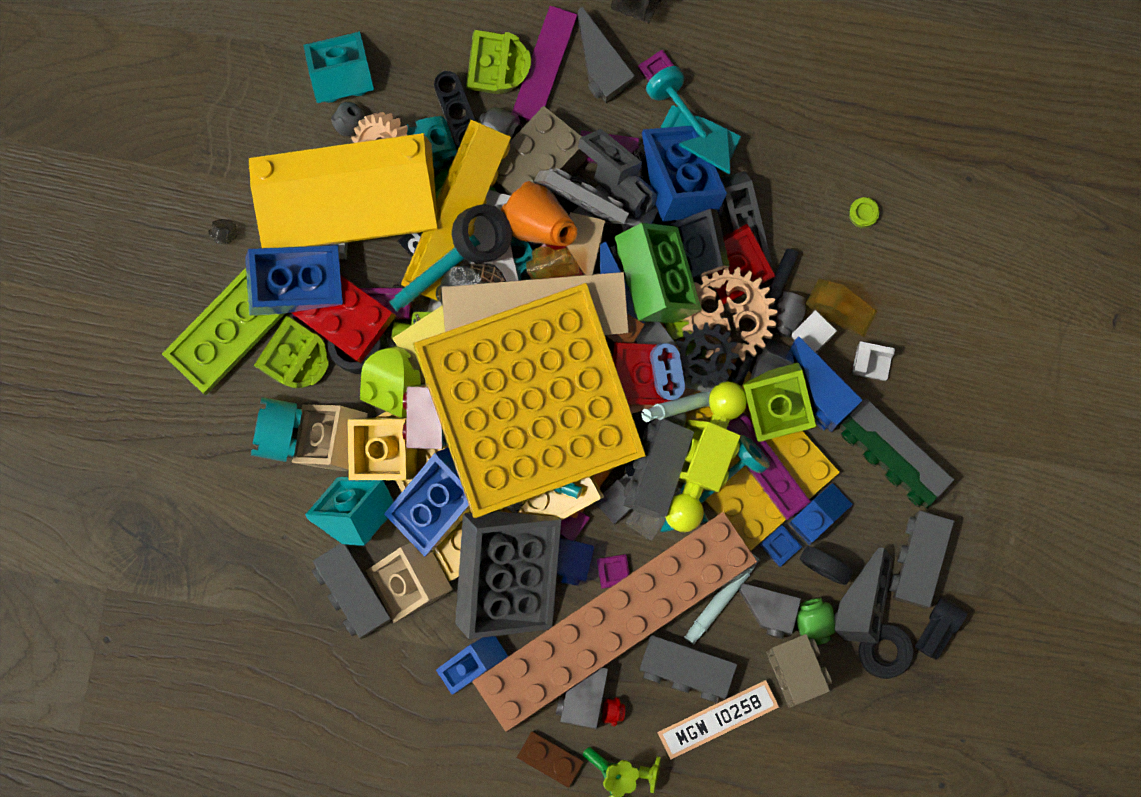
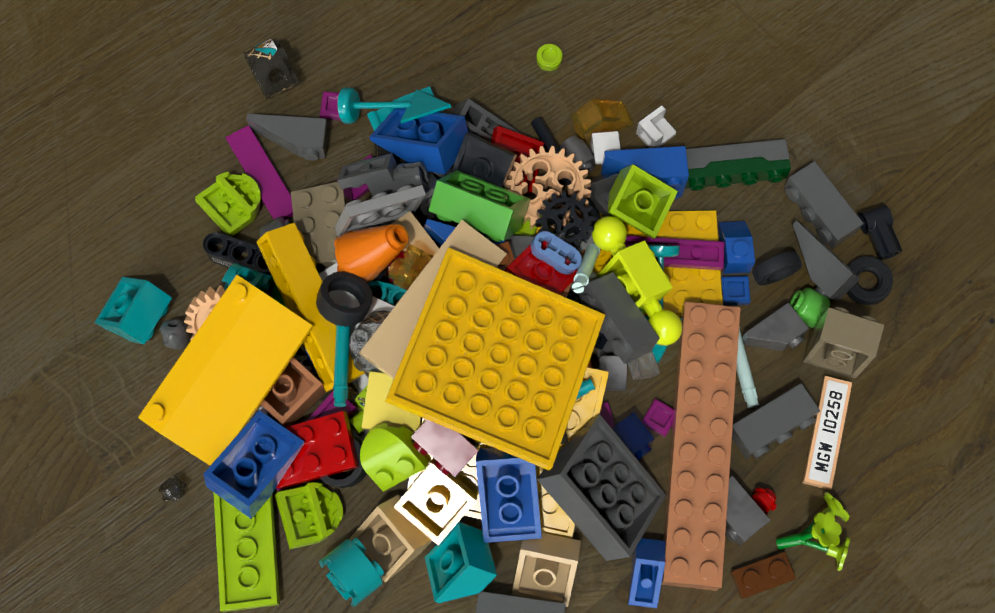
camera: 50 degrees left, 10 degrees down
(375, 259) = (292, 394): none -> nougat brick

